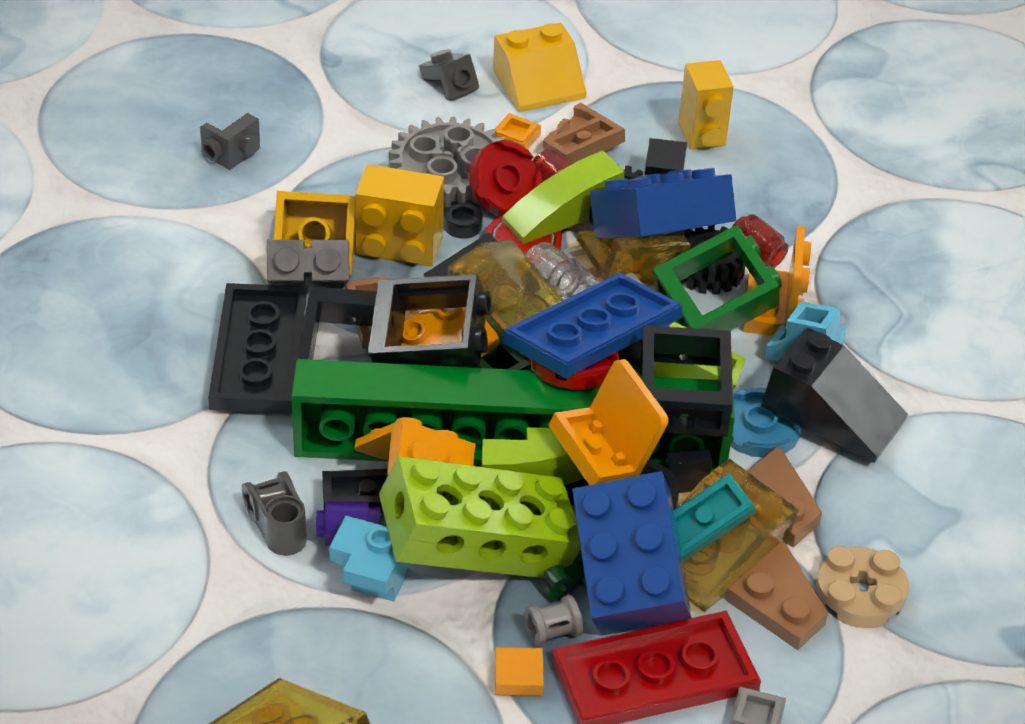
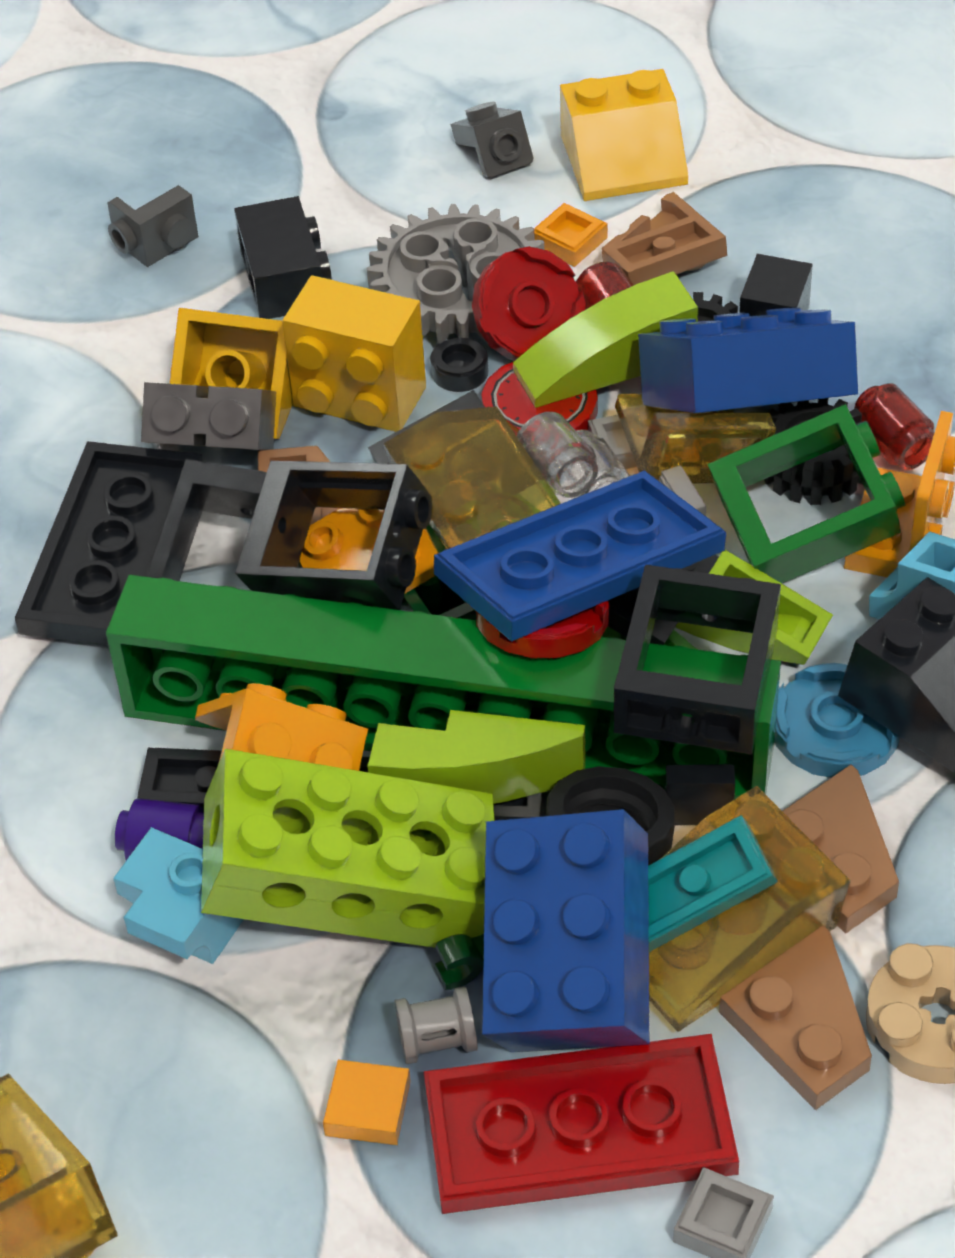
camera: 15 degrees right, 5 degrees up
(277, 513) = (70, 809): dark grey piece -> none
(326, 156) = (279, 253): none -> black brick
(616, 431) = (566, 741): light orange bracket -> none
(705, 104) = (854, 205): yellow brick -> none

